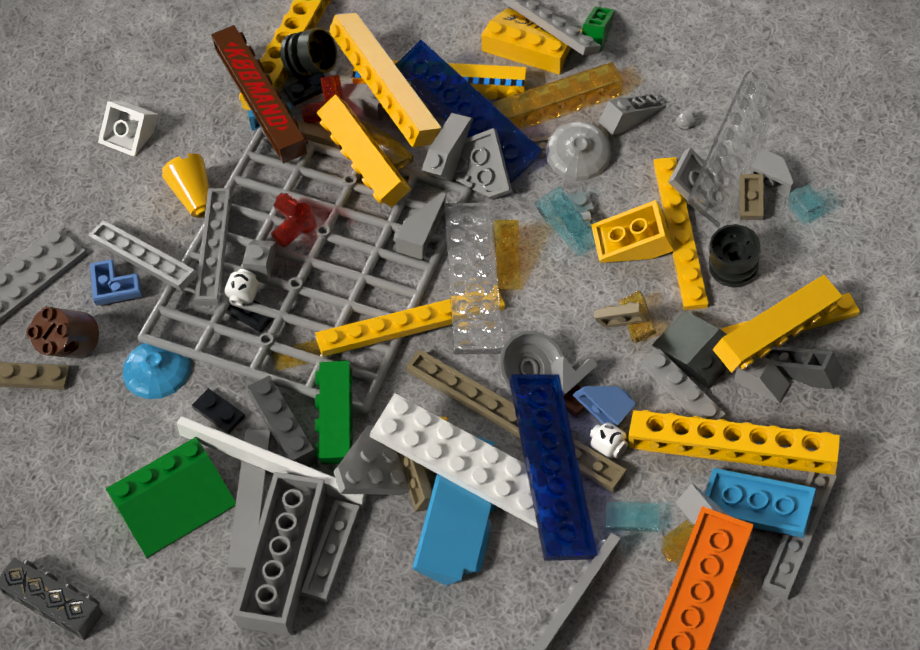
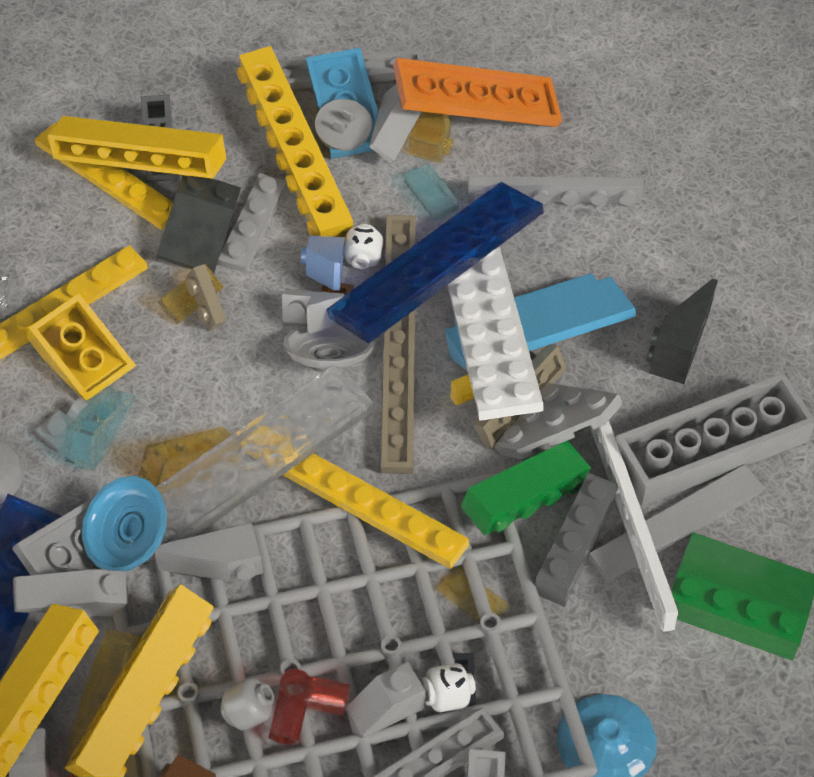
camera: 130 degrees left, 0 degrees up
(218, 411) = (606, 627): black plate -> none
(312, 191) = (247, 704): none -> light grey head
(330, 551) = (656, 407): light grey plate -> none
(367, 579) = (679, 336): none -> pearl dark grey slope
(469, 185) = (124, 524): none -> dark azure hat
(733, 485) = (343, 124): none -> light grey piece
(734, 255) = (56, 236): pearl dark grey wheel -> none

